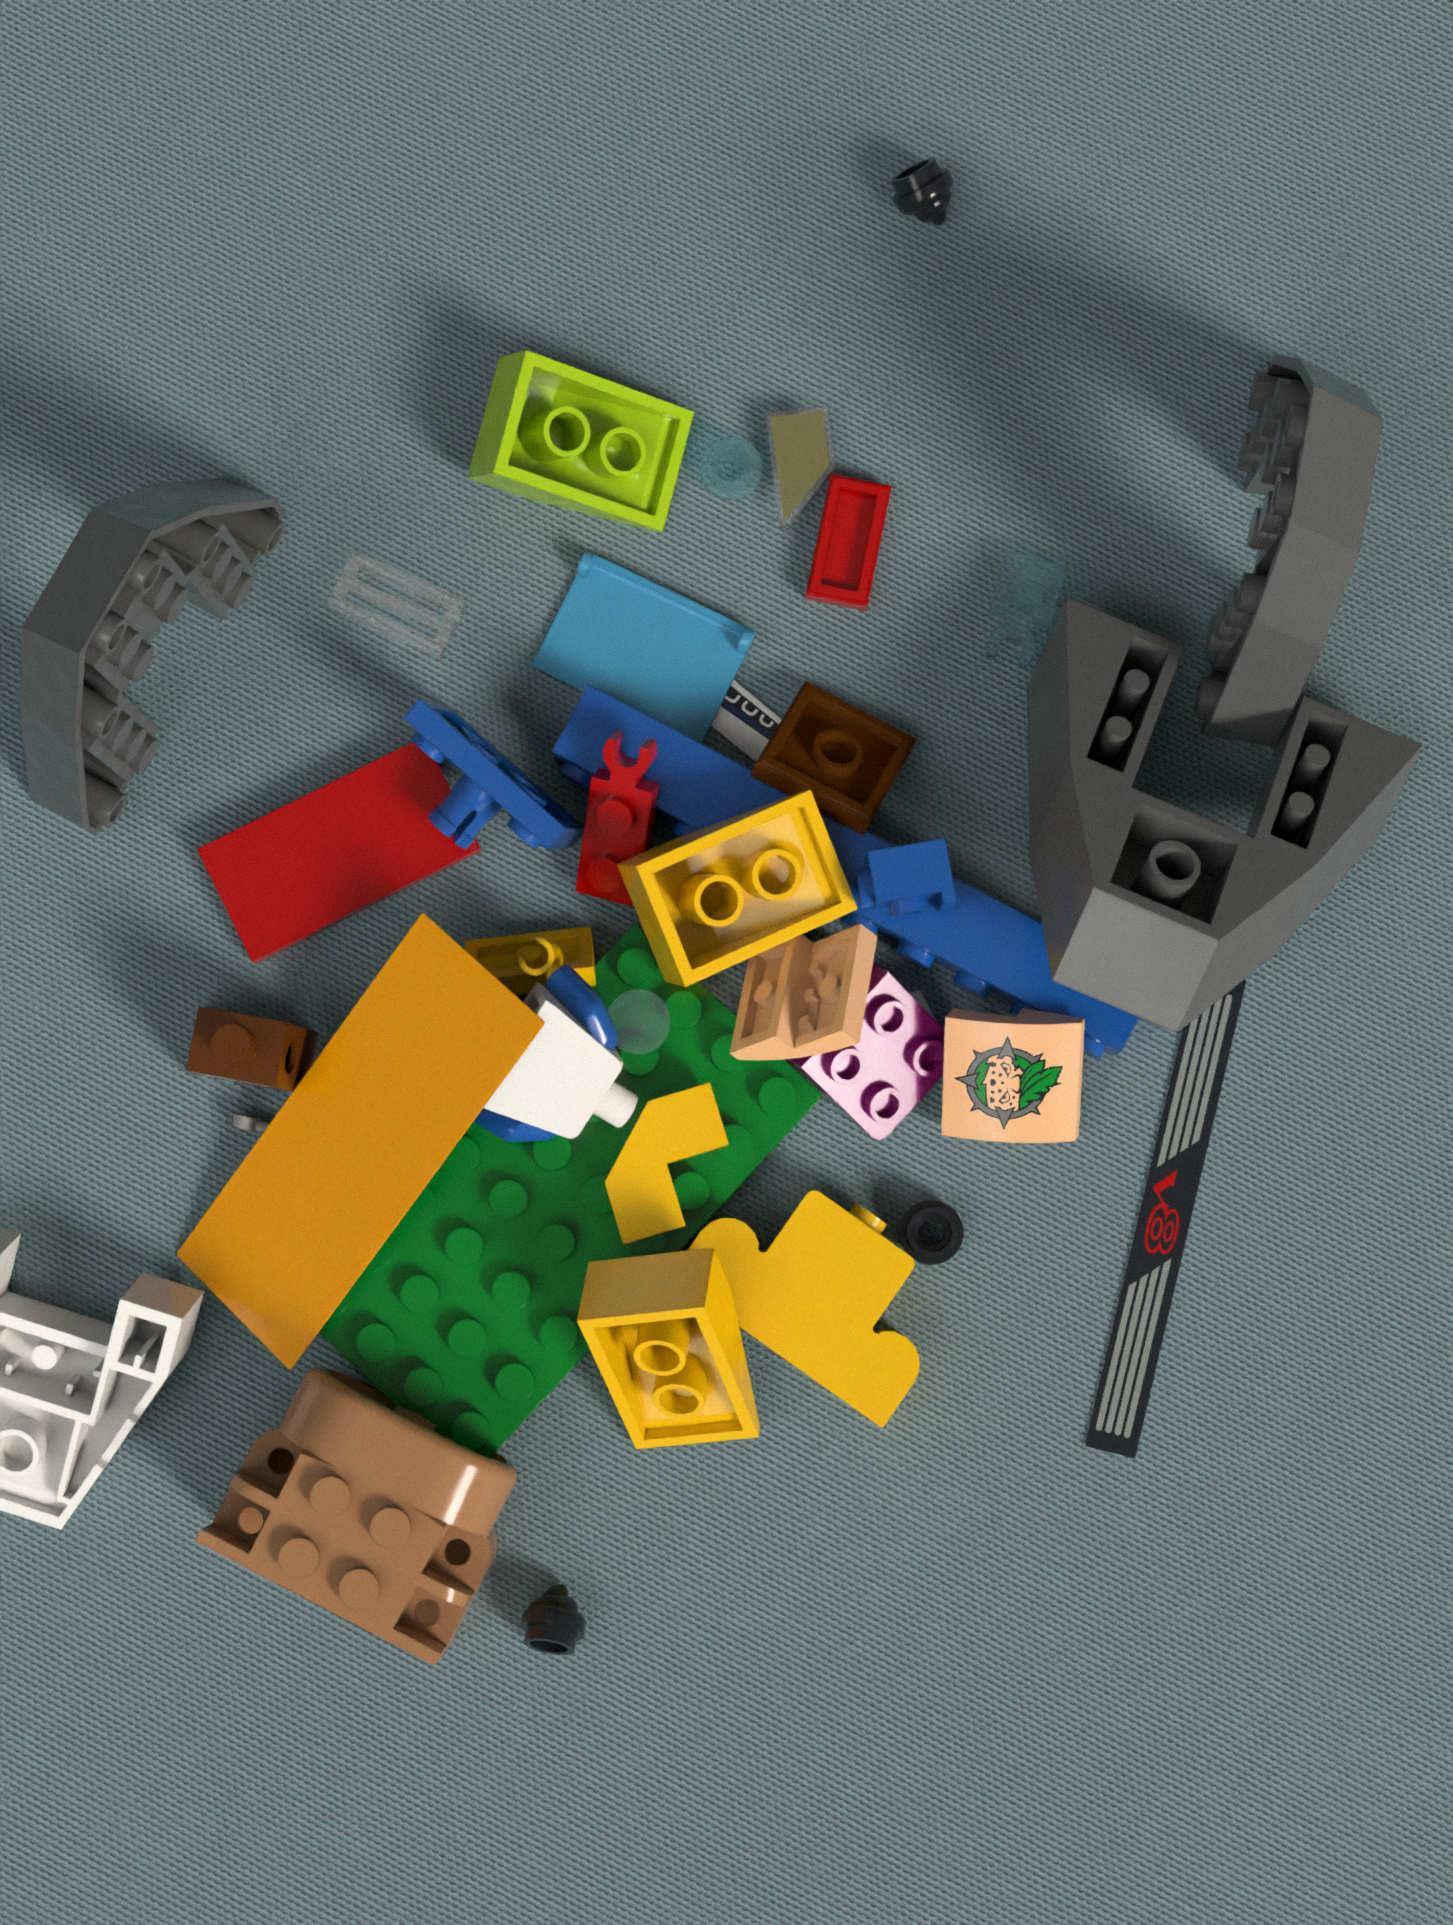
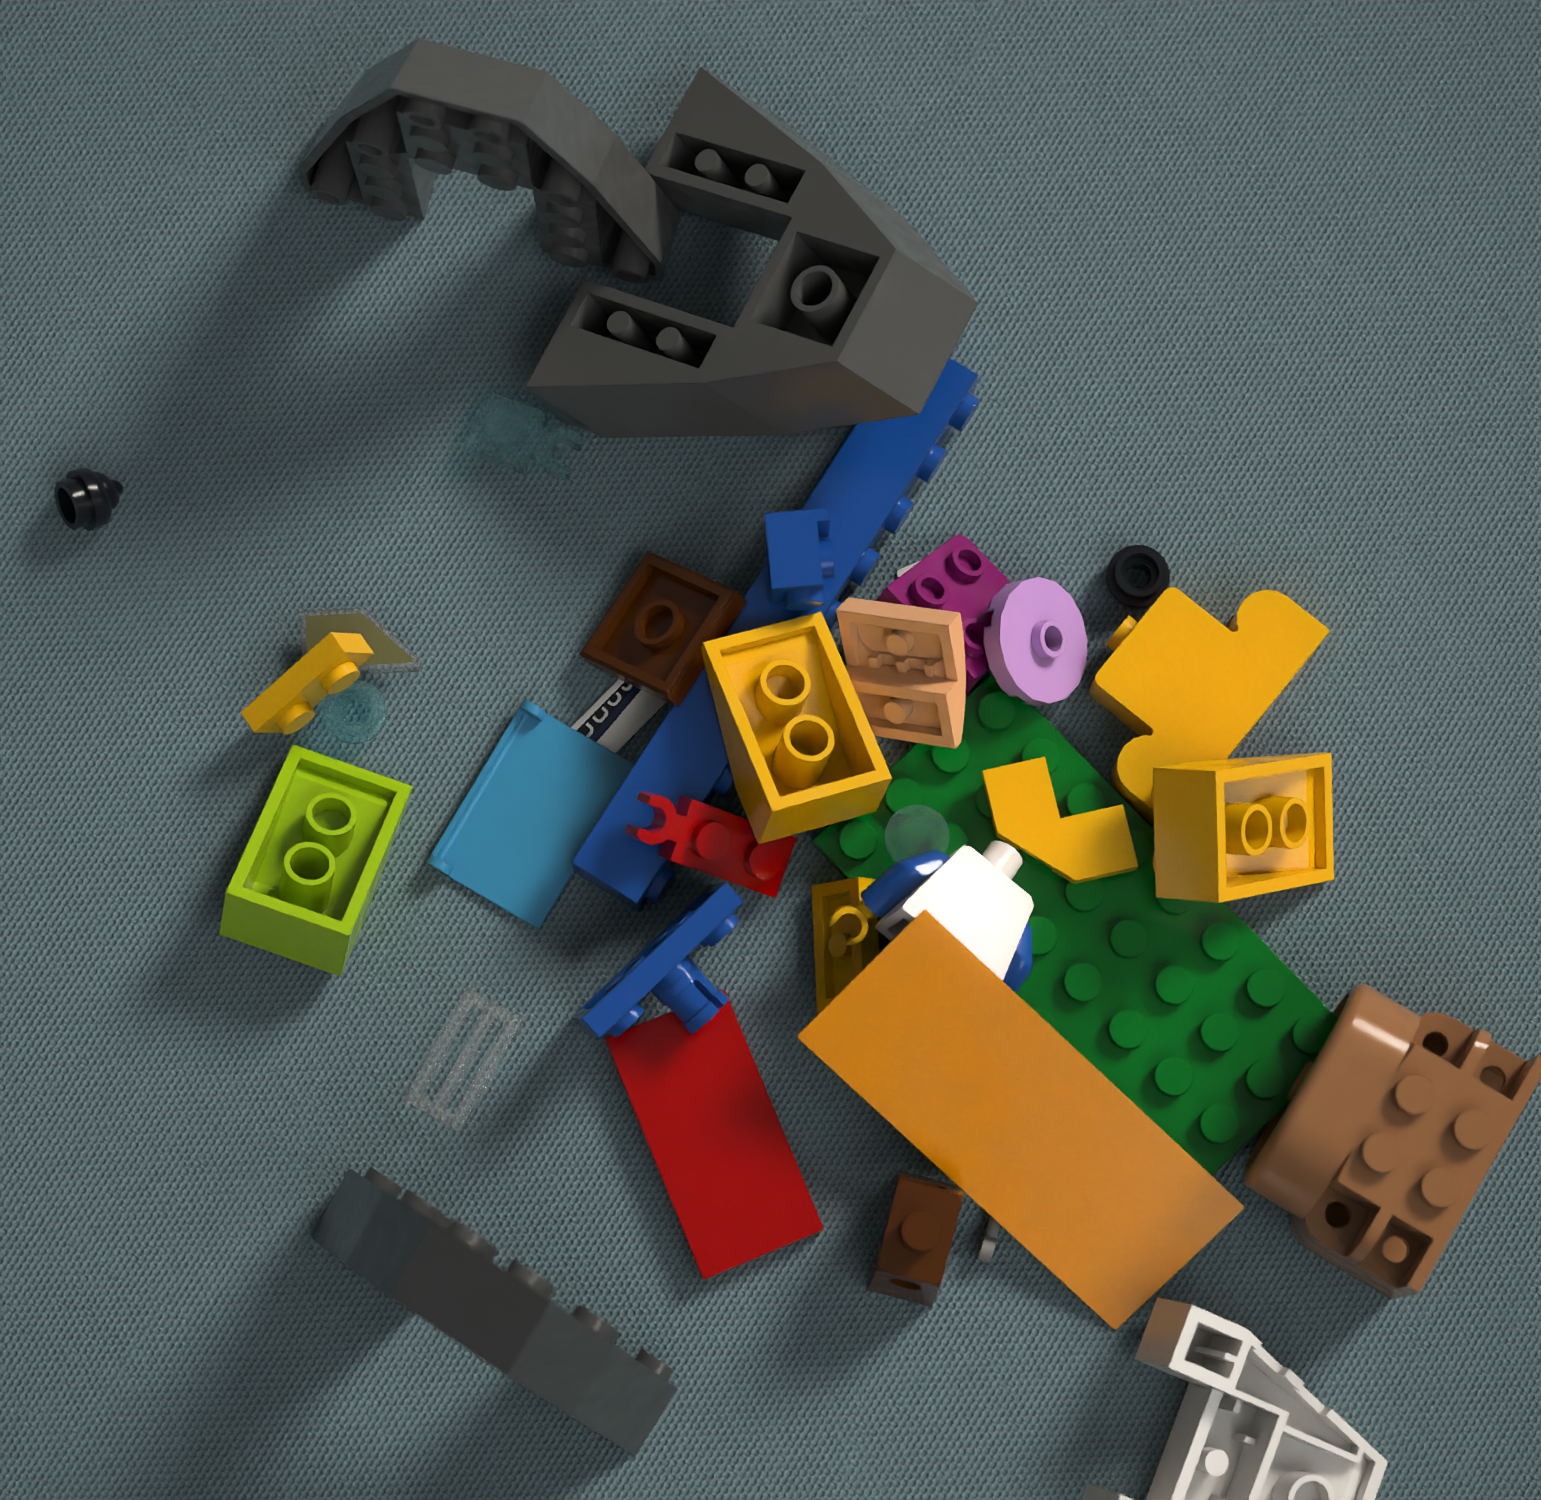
camera: 90 degrees left, 5 degrees down
(553, 1622) = (1501, 969): black plate -> none
(758, 424) = (322, 671): none -> yellow plate
(848, 542) = (440, 603): red tile -> none
(849, 1129) = (1036, 641): none -> lavender plate
(1012, 1076) = (993, 481): light nougat slope -> none
(1162, 1227) = (1163, 366): black sticker -> none

